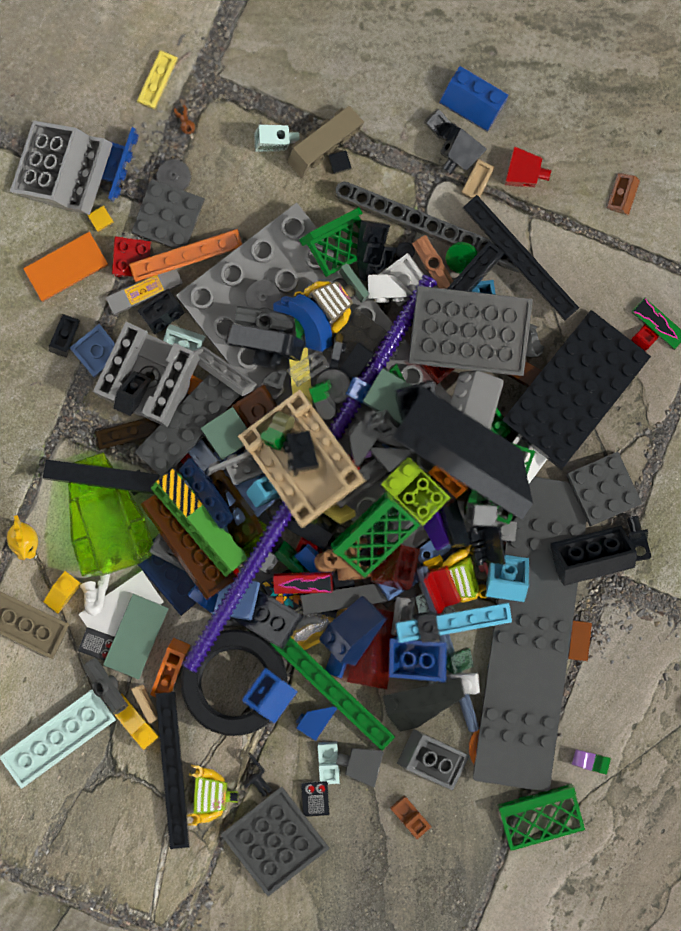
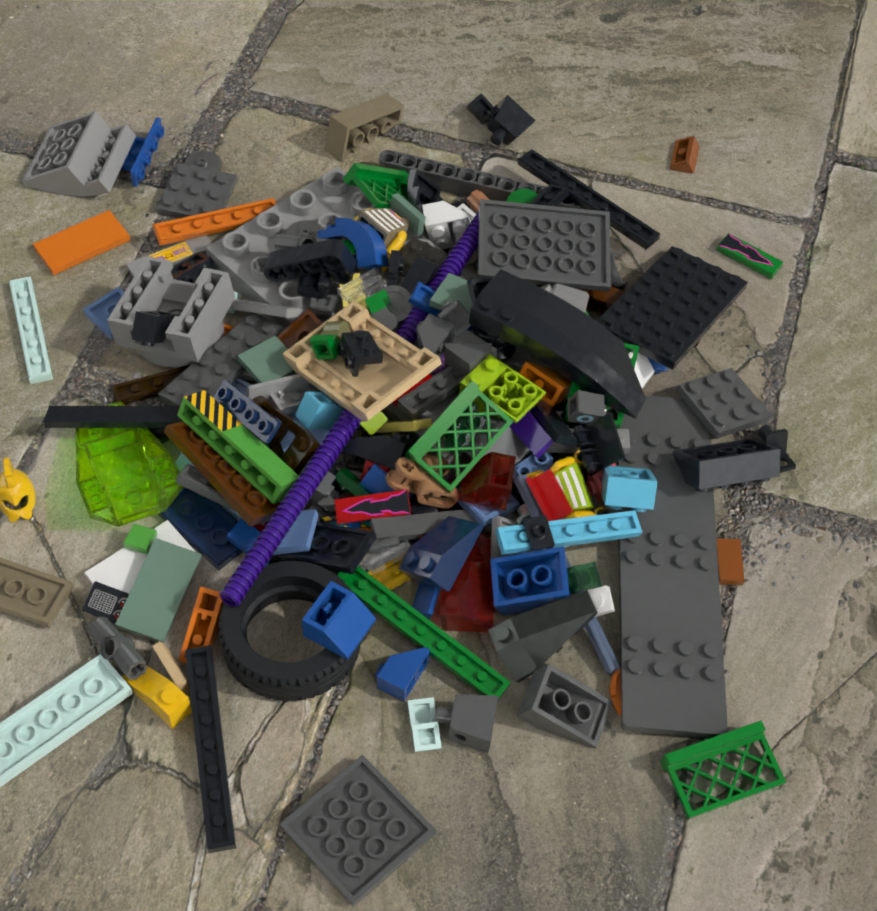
camera: 10 degrees left, 30 degrees down
(25, 363) = (30, 330): none -> light aqua tile
(62, 592) = (64, 547): yellow slope -> none
(64, 335) = (75, 301): black slope -> none
(95, 596) = (104, 550): white piece -> none
(100, 218) = (122, 201): yellow tile -> none
(121, 589) = (140, 538): none -> bright green tile
(126, 252) = (144, 226): red hinge -> none
(157, 79) = (184, 93): light yellow tile -> none
(186, 124) = (215, 122): dark orange arm -> none
(210, 795) = (262, 772): torso -> none
(256, 778) = (326, 748): black bracket -> none
(267, 138) = (307, 123): light aqua torso -> none
(315, 798) = (410, 771): black sticker -> none
(340, 162) = (380, 143): black tile -> none
(410, 817) = (543, 785): dark orange slope -> none
(473, 98) = (522, 84): blue slope -> none
(478, 179) = (530, 142): tan tile -> none
(525, 169) = (578, 138): red torso -> none
(591, 761) = (776, 695): leg -> none
(645, 338) = (737, 267): red slope -> none

